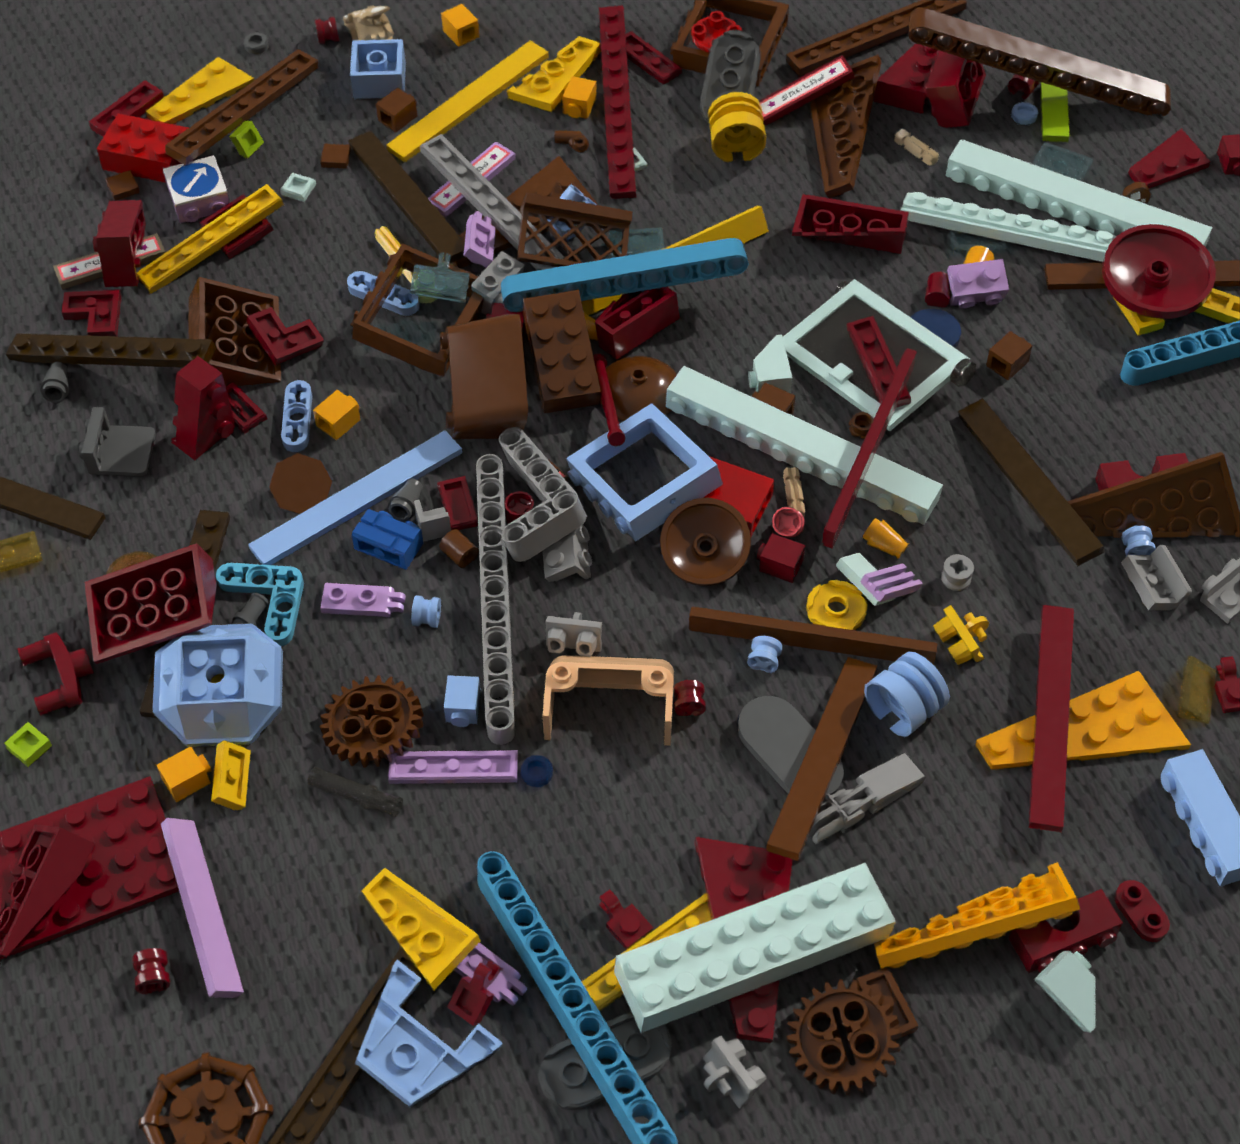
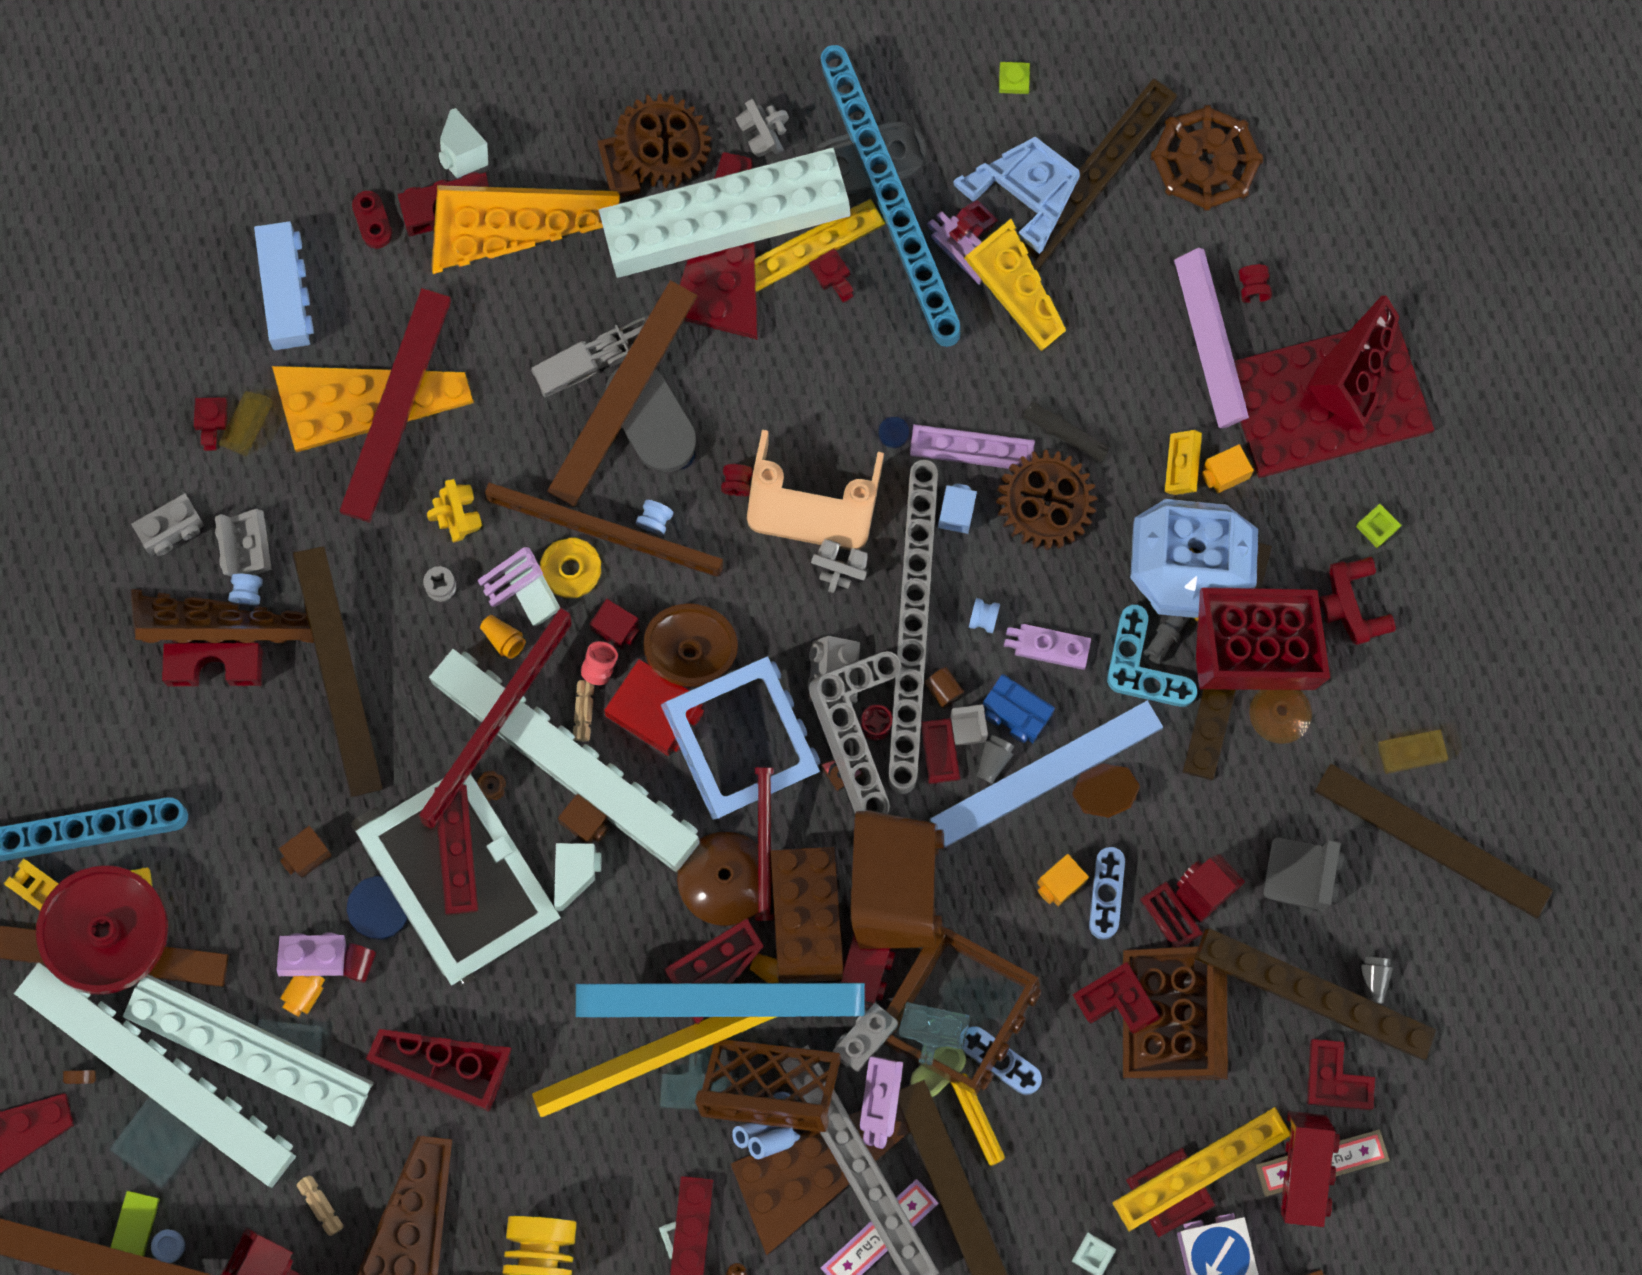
camera: 175 degrees left, 20 degrees up
(908, 689) = (529, 441): light blue wheel -> none

